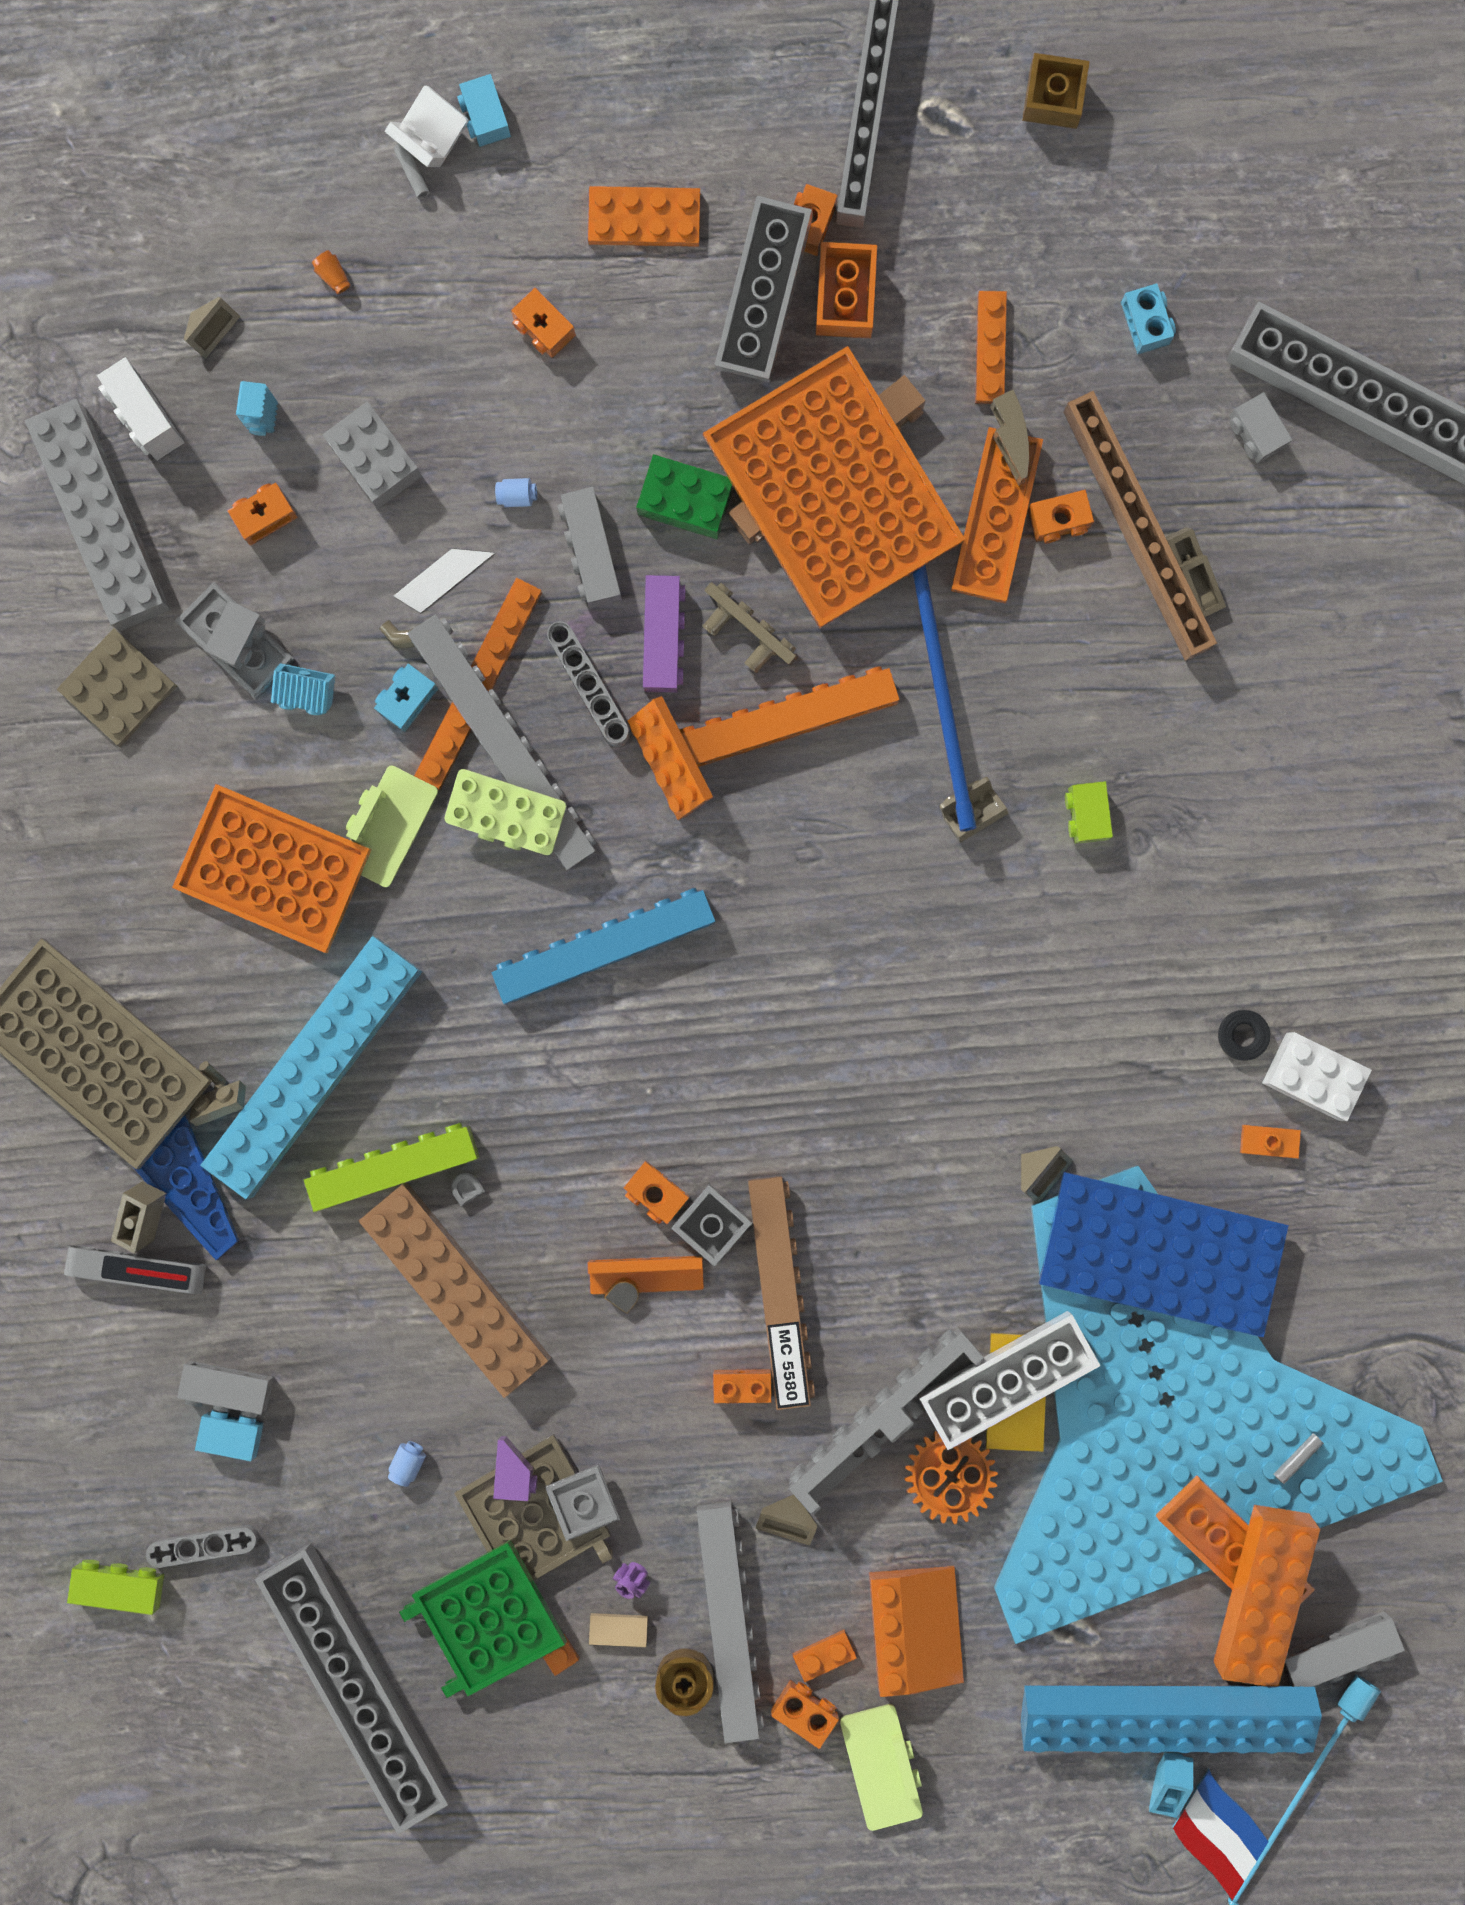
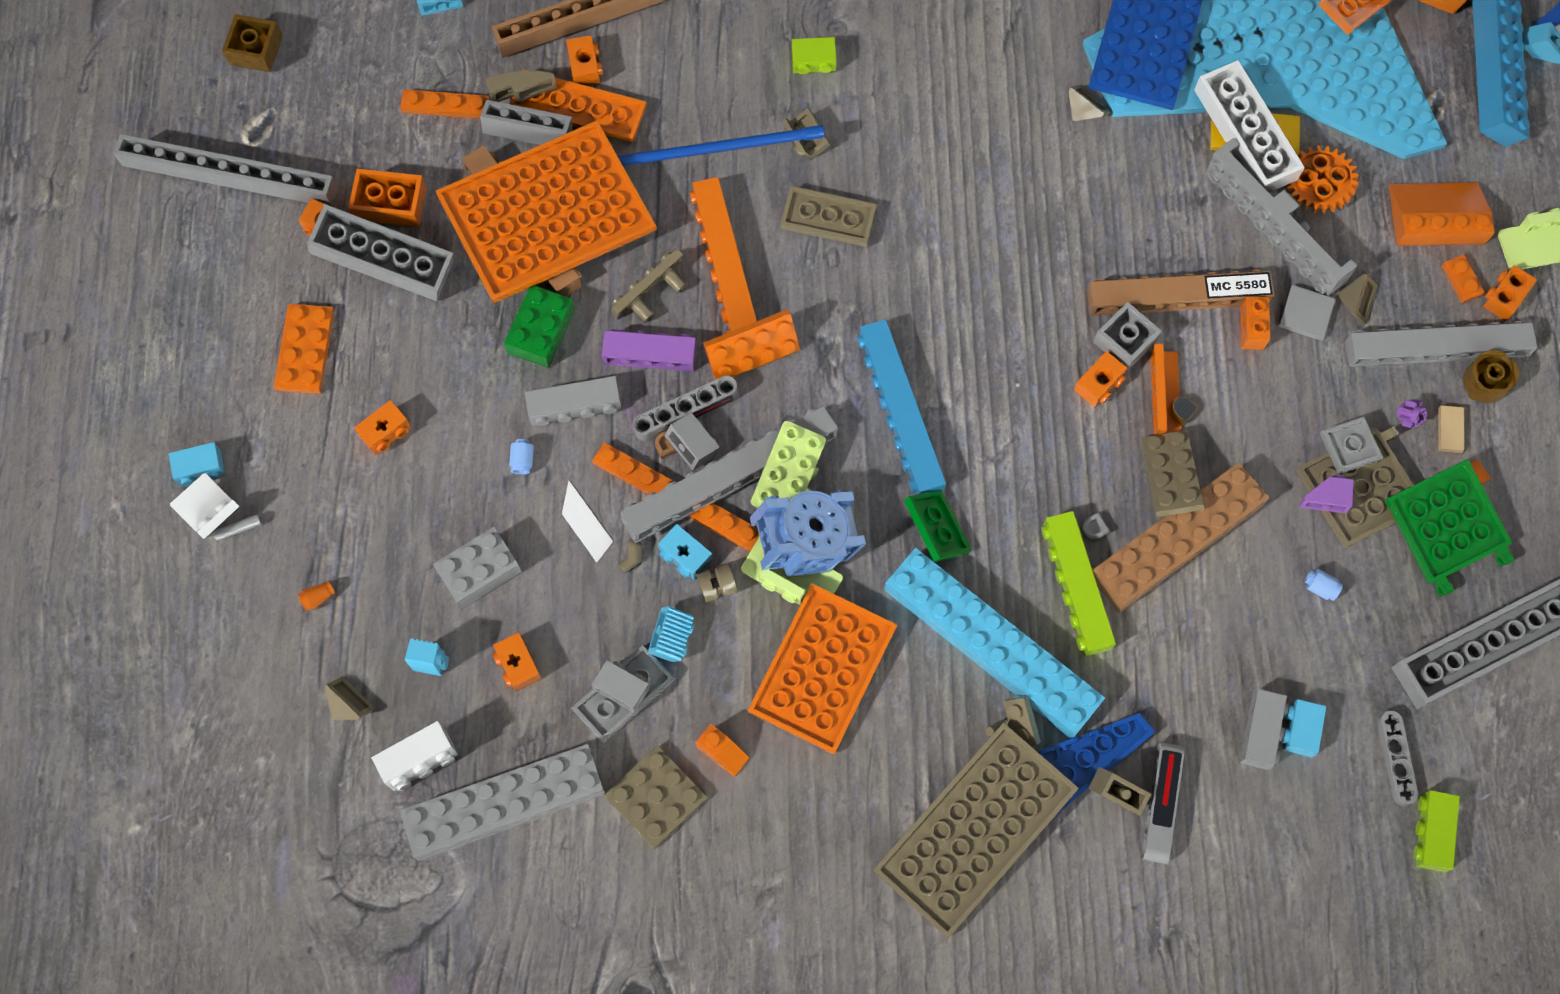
camera: 90 degrees left, 15 degrees down
(170, 758) = (721, 750): none -> orange slope
(368, 747) = (724, 579): none -> dark tan wheel
(409, 805) = (796, 553): none -> medium blue piece
(451, 996) = (937, 525): none -> green plate
(531, 1279) = (1172, 473): none -> dark tan plate
(544, 695) = (692, 441): none -> light grey brick
(545, 666) = (663, 446): none -> medium nougat tile
(765, 1453) = (1307, 312): none -> light grey tile
(860, 844) = (828, 216): none -> dark tan plate
(960, 450) = (523, 123): none -> light grey brick

